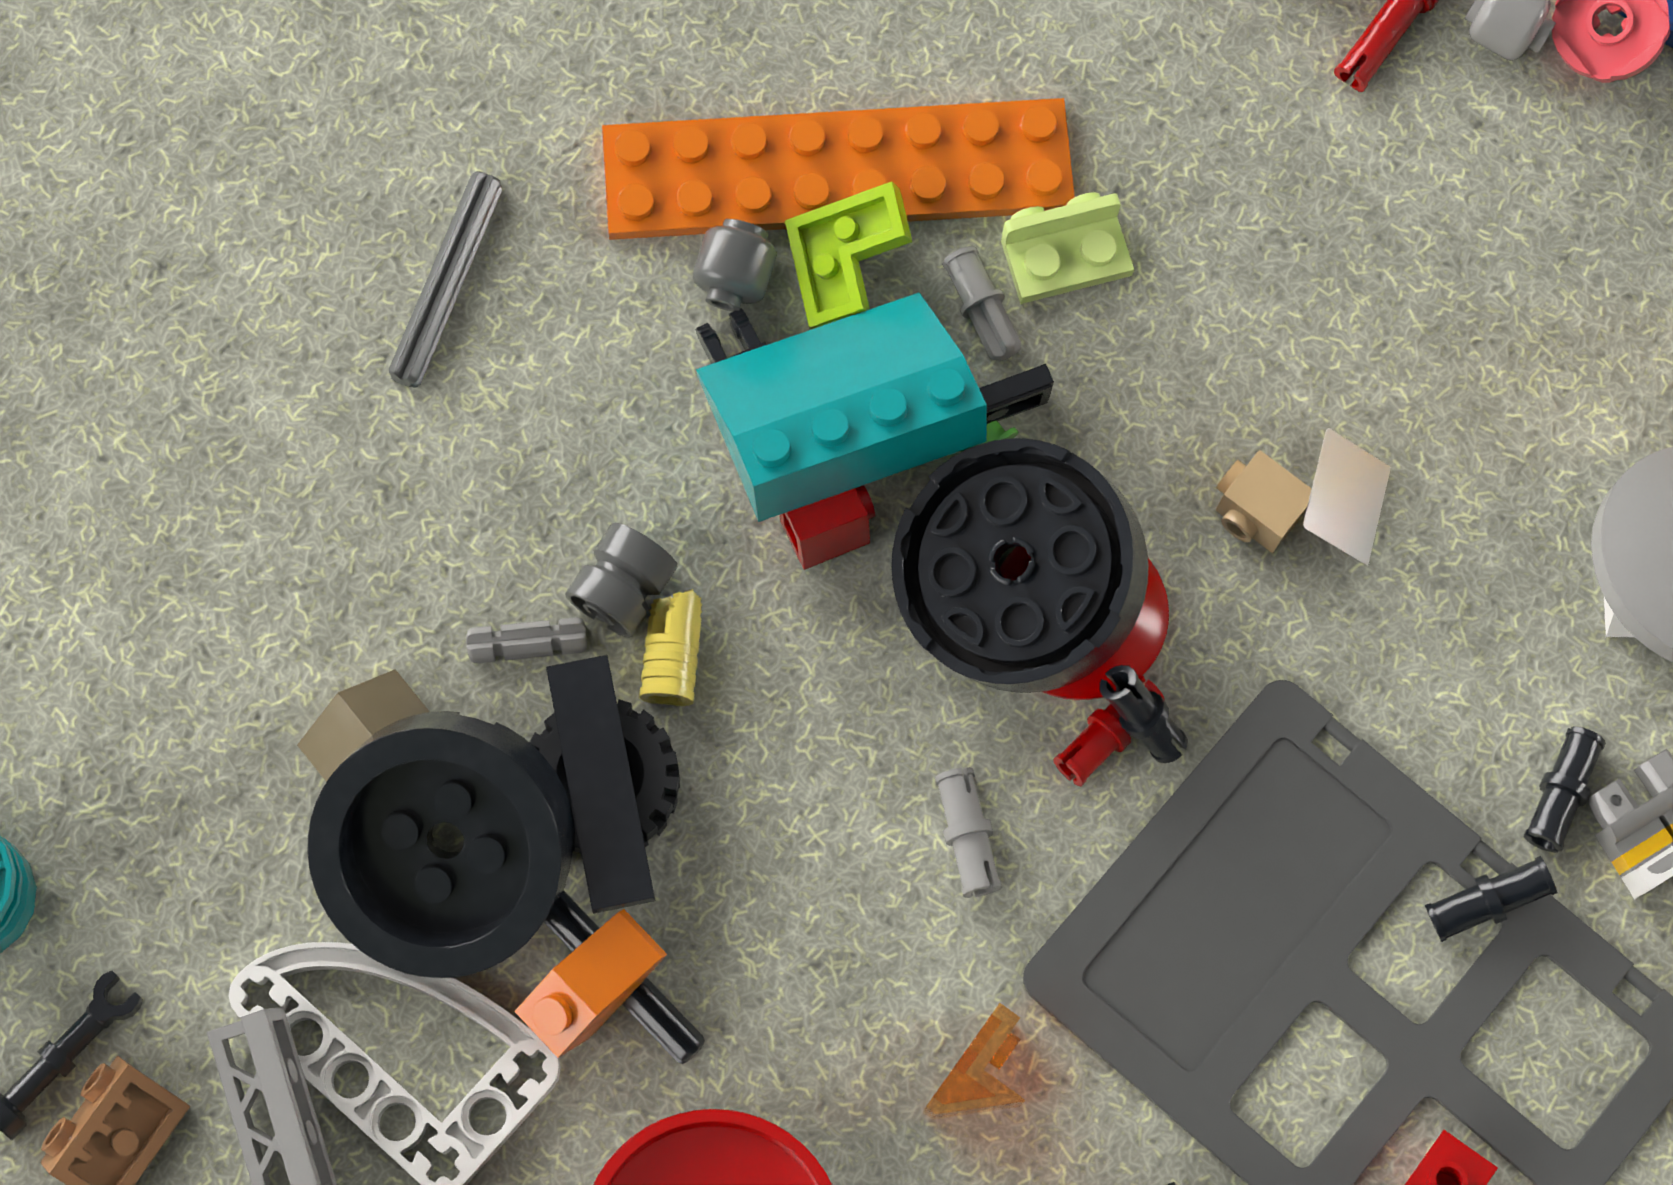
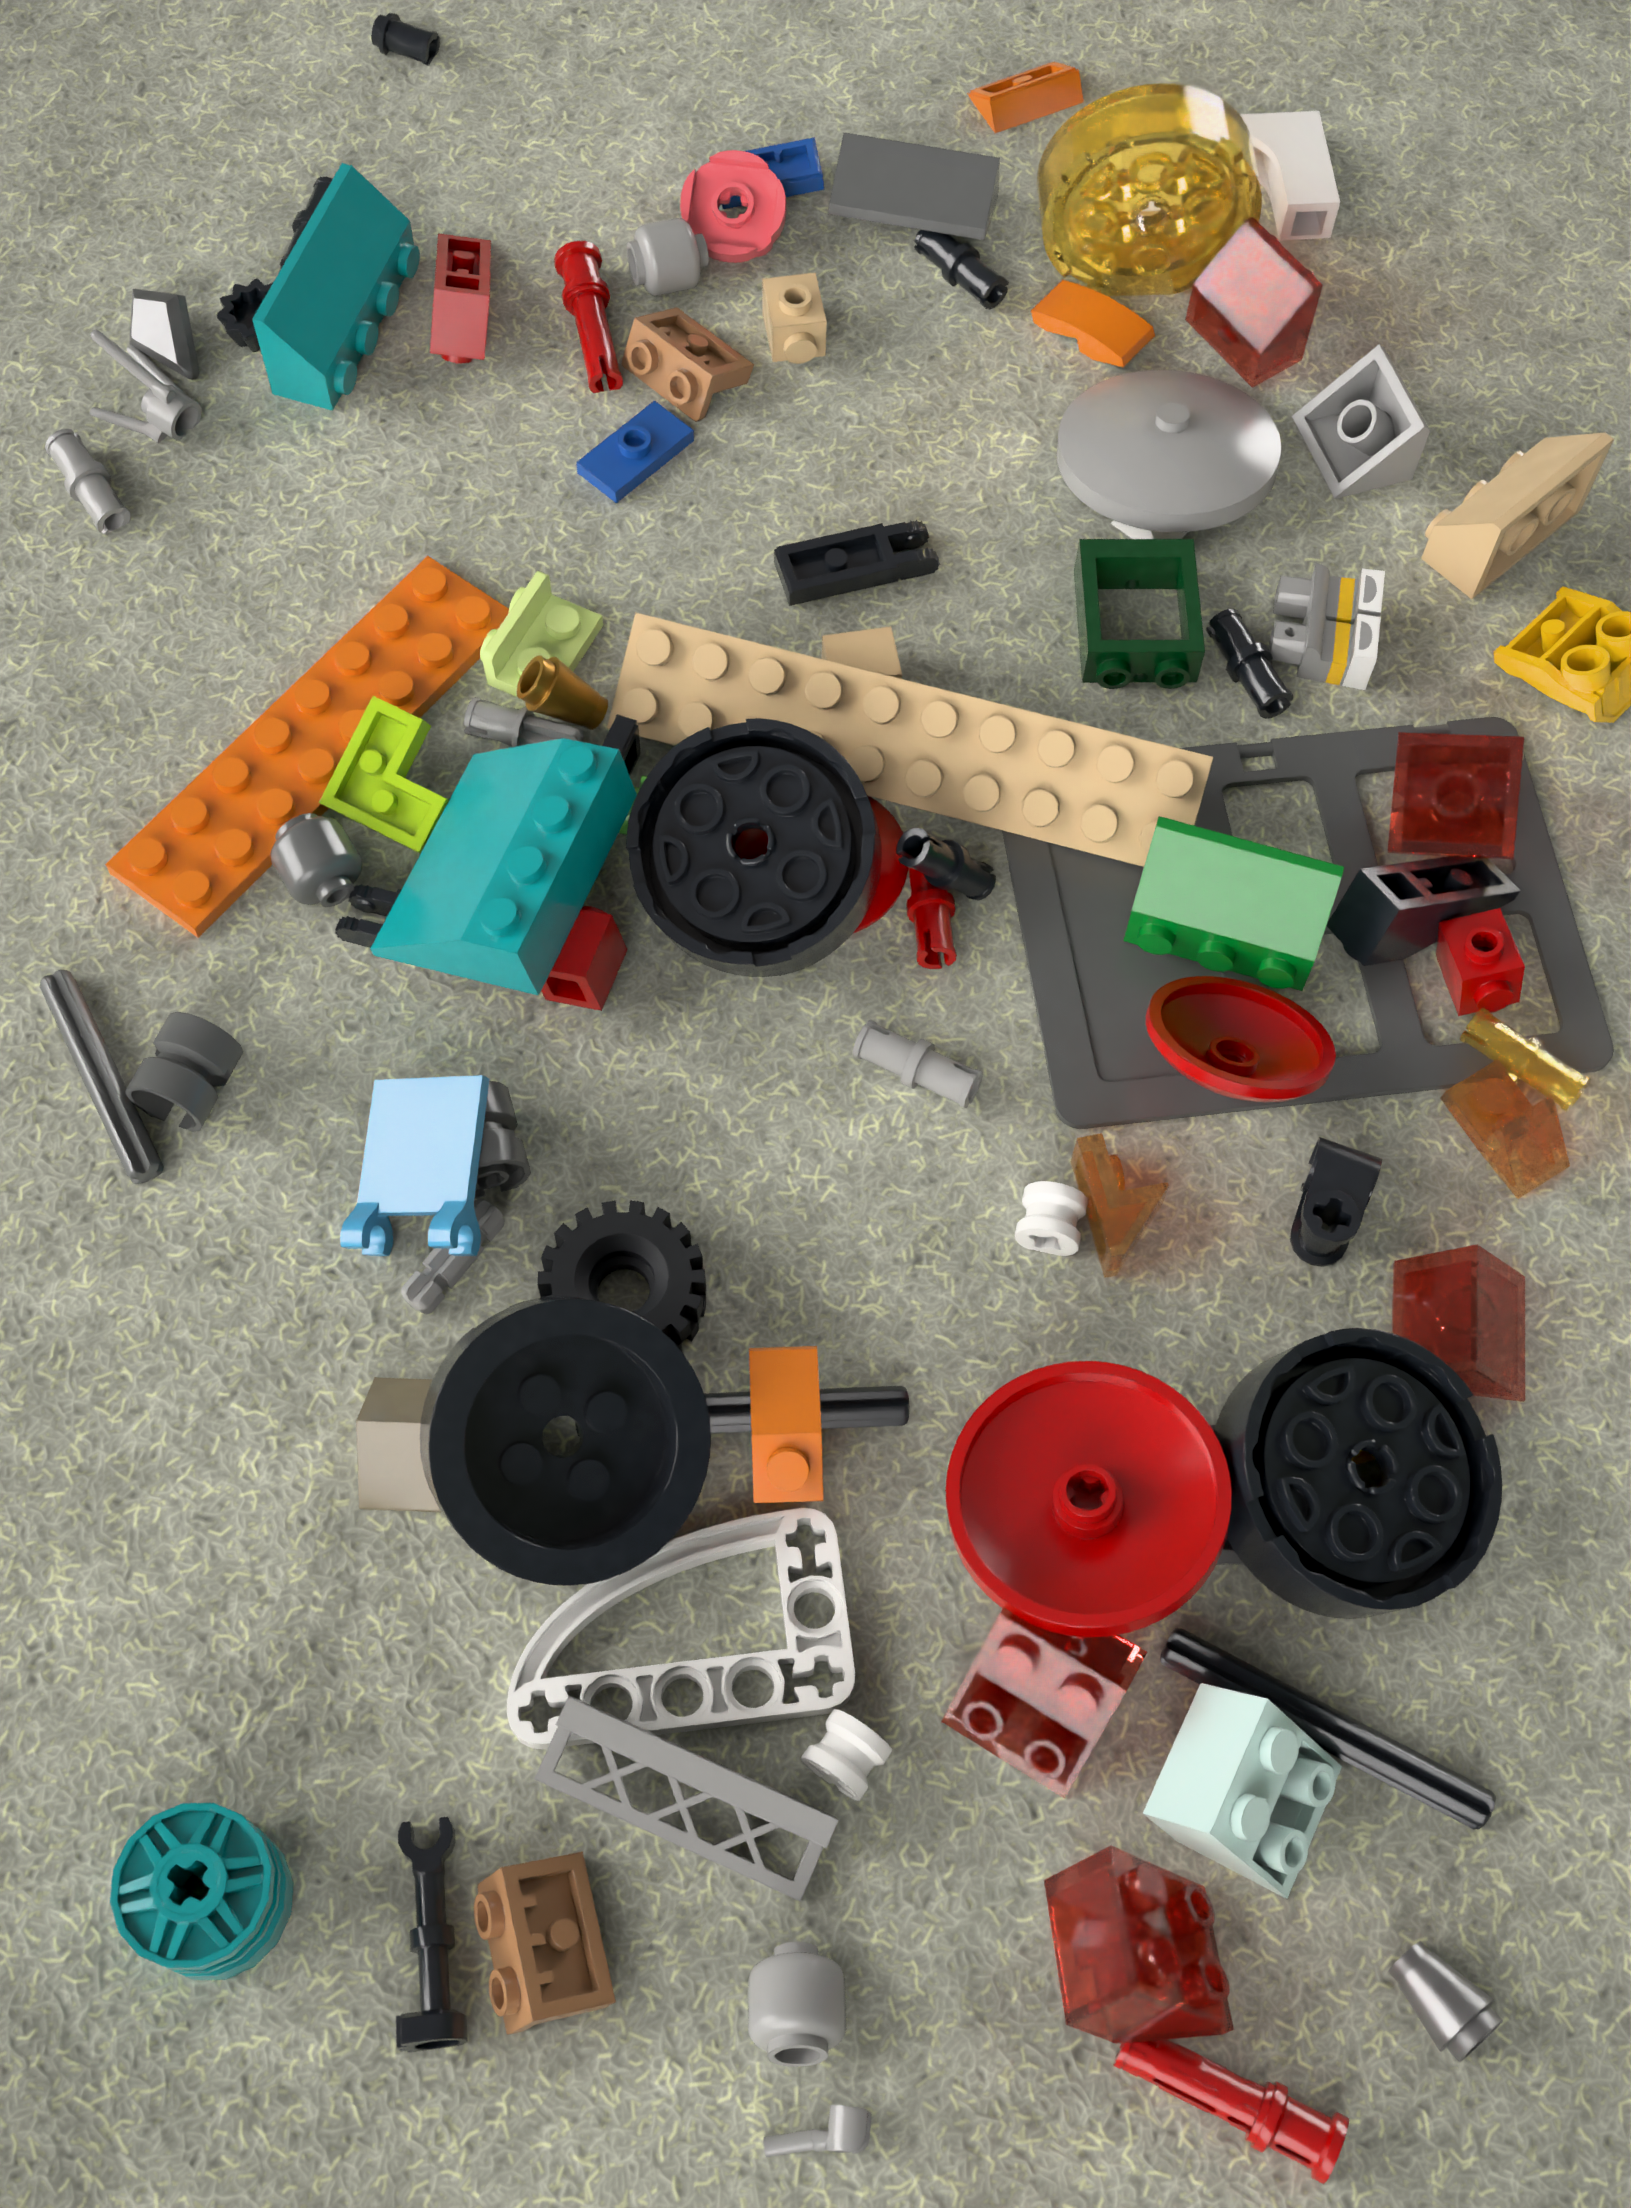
camera: 45 degrees left, 10 degrees down
(493, 334) = (187, 1065): none -> dark grey wheel
(562, 559) = (421, 1163): none -> flag
(600, 784) = (633, 1277): black tile -> none
(672, 650) = (571, 1153): light yellow hinge -> none
(927, 1035) = (1051, 1218): none -> white wheel
(1030, 304) = (560, 693): none -> pearl gold cone
(1216, 1054) = (1239, 1039): none -> red dish
(1231, 603) = (918, 740): none -> tan plate
(1301, 958) = (1232, 904): none -> slope
(1309, 157) = (635, 451): none -> blue plate
(1346, 496) = (908, 618): white sticker -> none
(1364, 407) = (853, 561): none -> black hinge
(1429, 117) = (683, 360): none -> medium nougat bracket
(1435, 1090) = (1399, 906): none -> black slope
(1491, 898) = (1290, 765): black pin -> none
(1549, 164) = (794, 317): none -> tan brick
(1567, 624) = (1138, 566): none -> dark green window
(1574, 1056) = (1456, 795): none -> clear red slope

